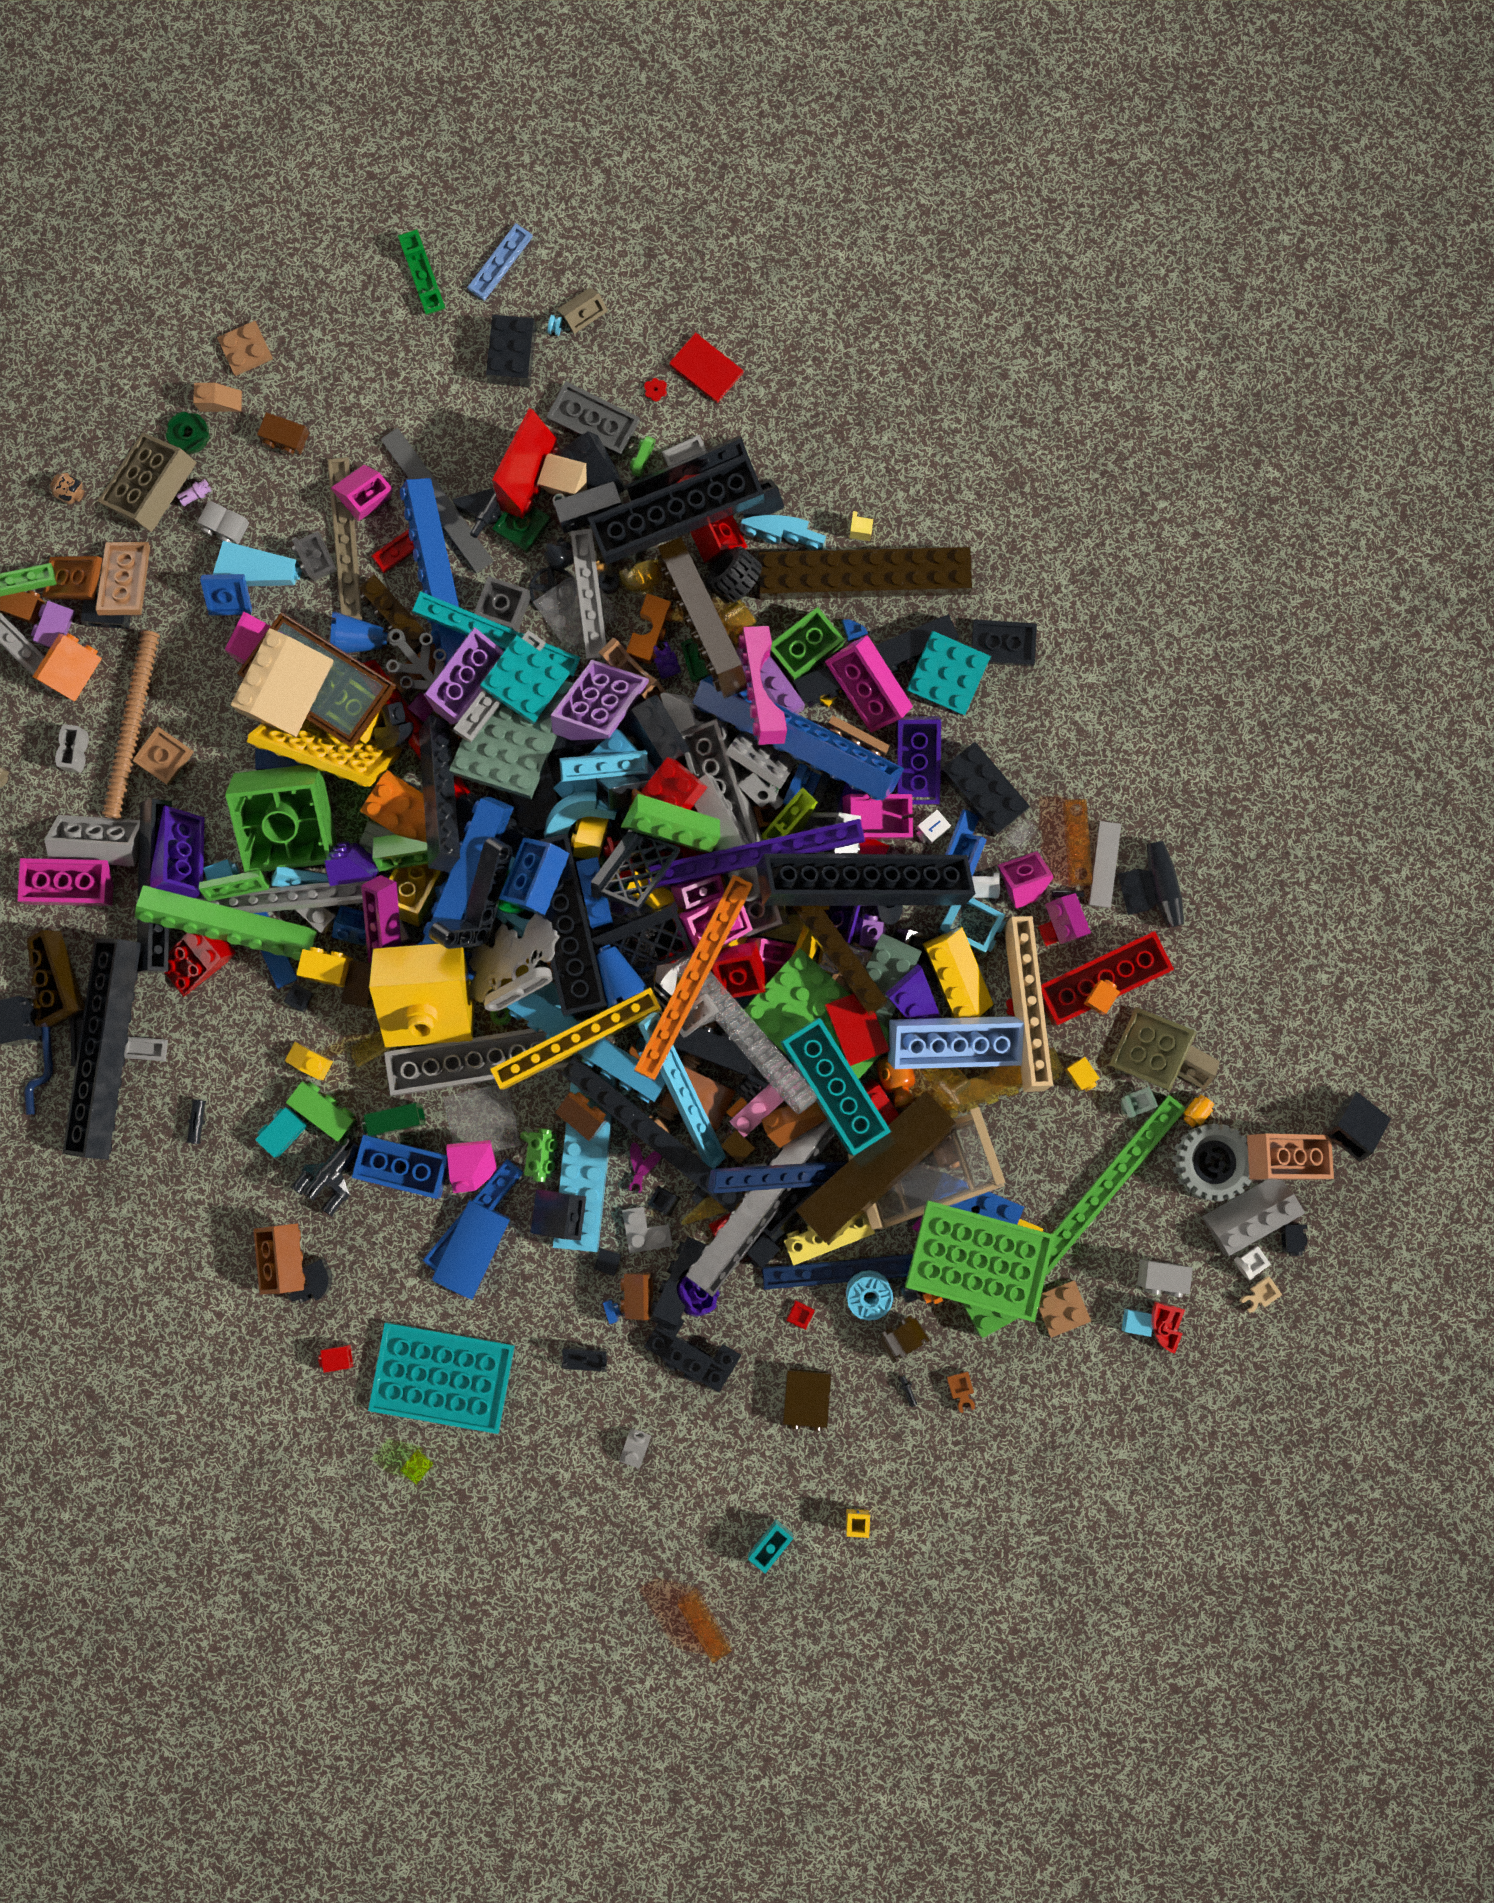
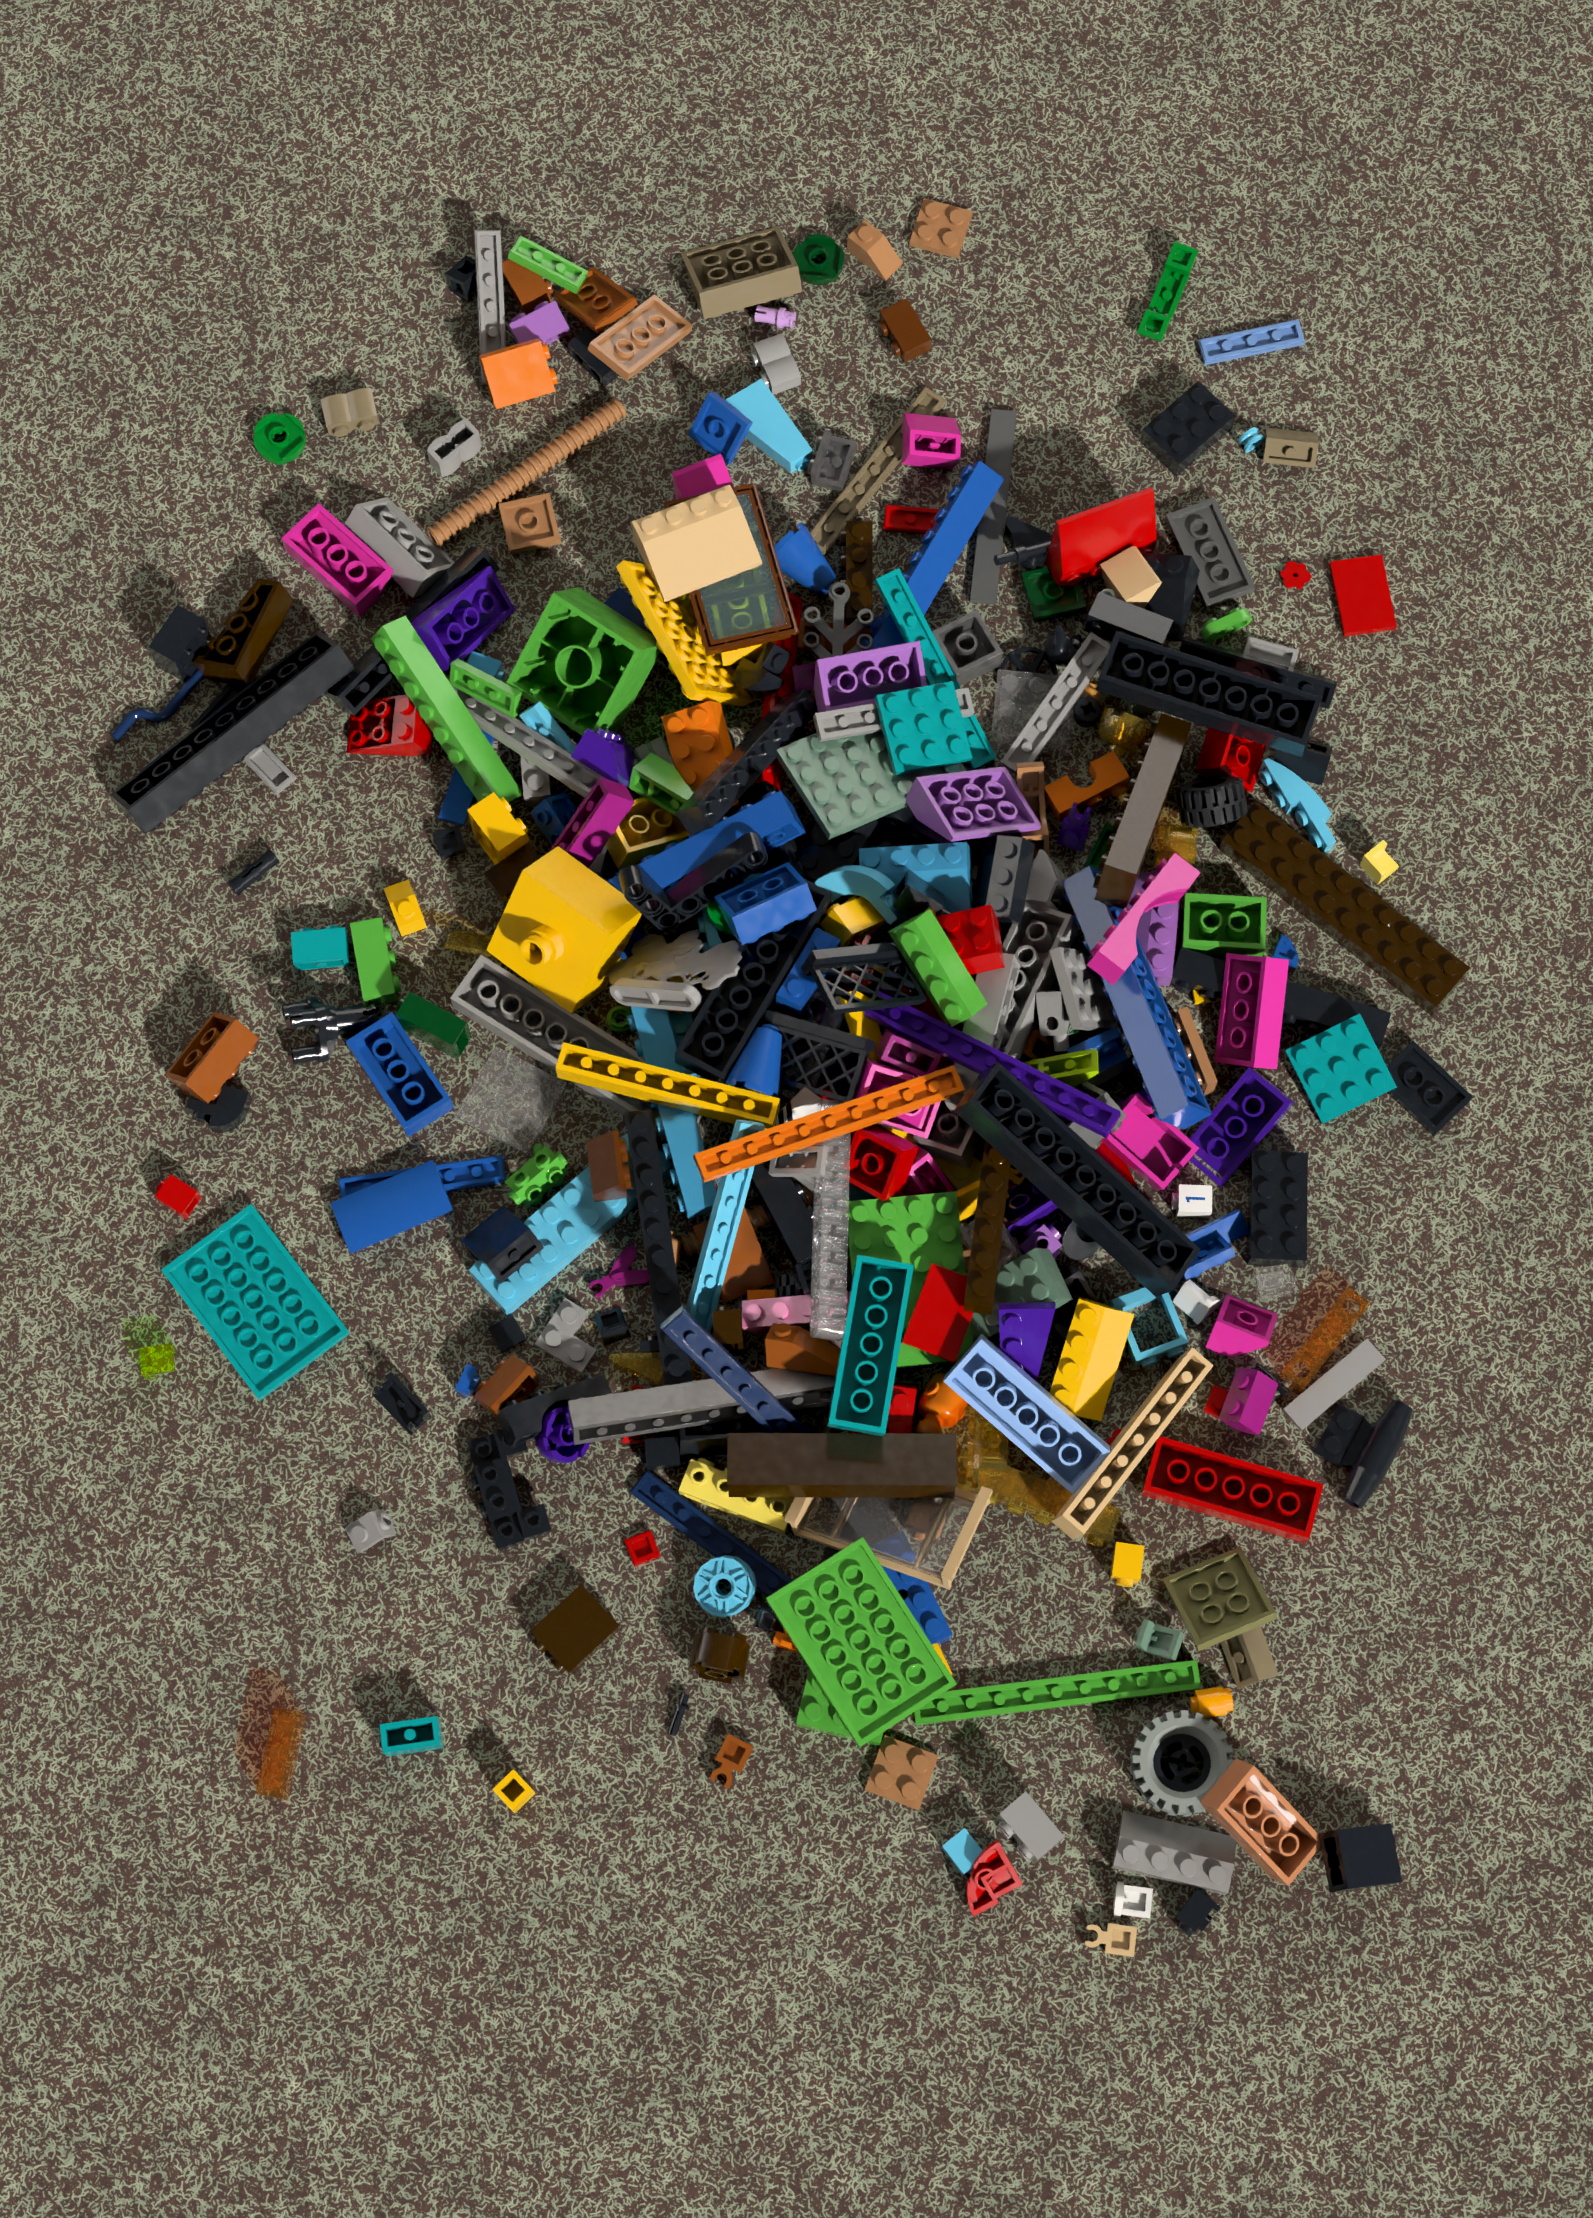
camera: 45 degrees right, 10 degrees down
(67, 488) = (664, 219): medium nougat head -> none
(470, 1165) = (464, 1127): dark pink slope -> none
(603, 765) = (924, 865): medium azure tile -> none
(1102, 996) = (1211, 1497): orange brick -> none

